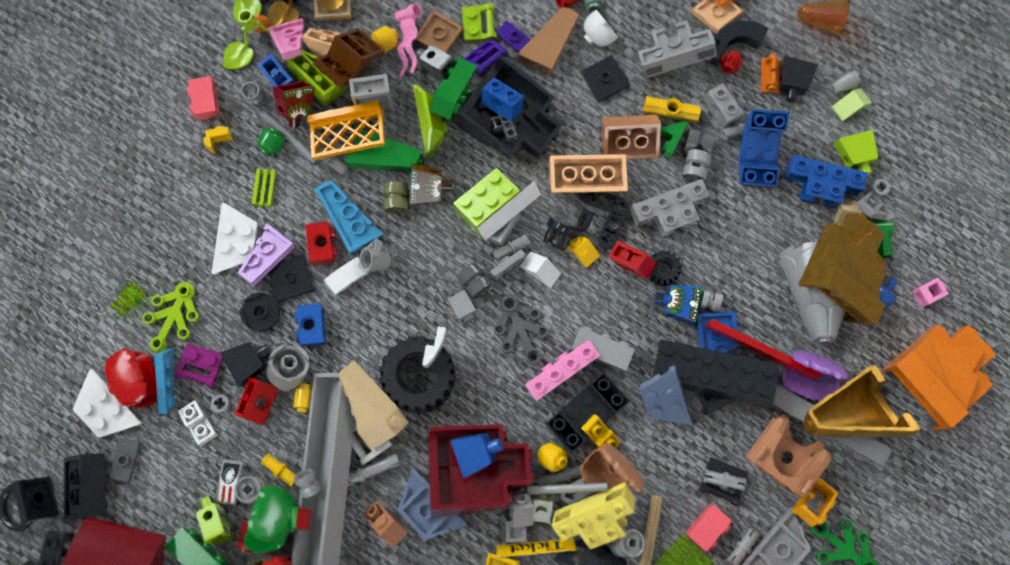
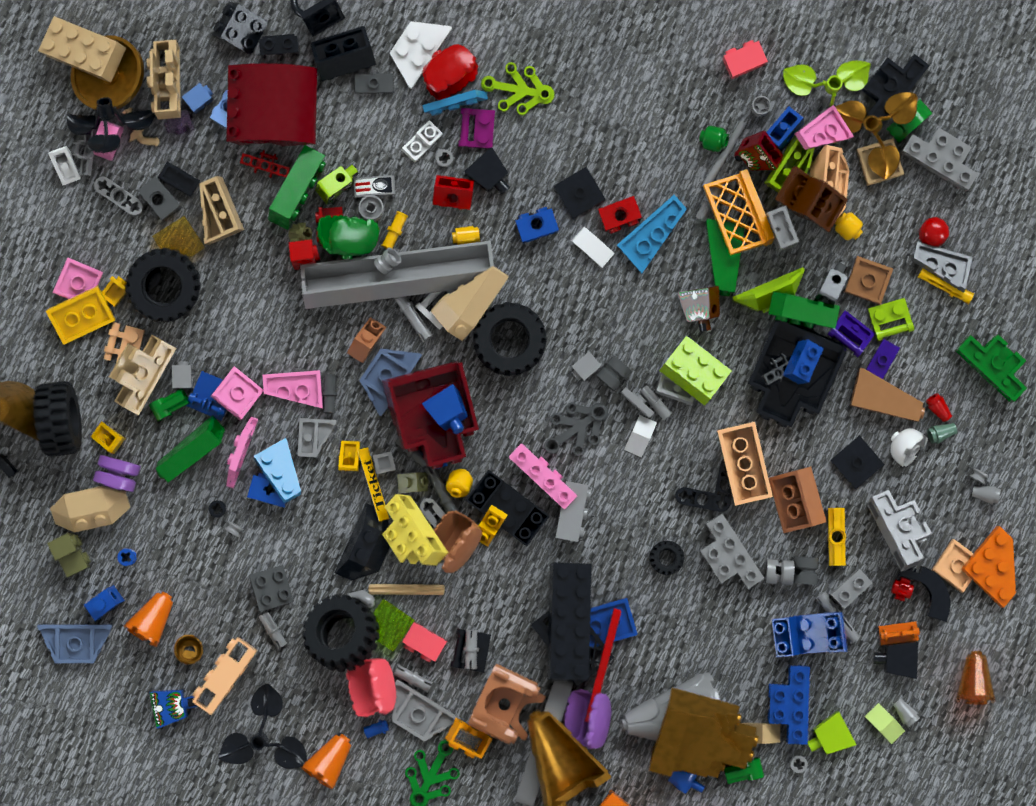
camera: 85 degrees right, 10 degrees up
(130, 296) = (528, 43): clear neon green plate -> none
(215, 135) = (711, 85): yellow bracket -> none
(234, 239) = (606, 128): white wing -> none
(250, 307) = (542, 162): black plate -> none
(263, 20) = (841, 96): orange tile -> none
(265, 172) = (665, 143): lime tile -> none
(266, 255) = (596, 164): lavender wing -> none
(287, 367) = (500, 210): light grey brick -> none
(300, 518) = (355, 262): red tile -> none
(374, 258) = (614, 270): light grey piece -> none
(396, 197) = (682, 277): olive wheel -> none
(407, 23) = (858, 251): bright pink flag -> none
(432, 352) = (530, 348): white slope -> none
(509, 211) = (689, 393): white sticker -> none
(521, 510) = (403, 463): light grey brick -> none
(563, 229) = (684, 449): black piece -> none
(572, 488) = (432, 502): light grey bar -> none
(583, 250) = (668, 474): yellow bracket -> none
(629, 545) = (392, 568): light grey wheel -> none
(632, 259) = (666, 523): red brick -> none
(665, 398) = (535, 580): sand blue wing -> none
(672, 133) = (811, 543): green slope -> none
(680, 302) = (635, 579): torso -> none
(710, 301) = (643, 609): light grey wheel -> none
(874, 208) = (774, 759): light grey wing -> none

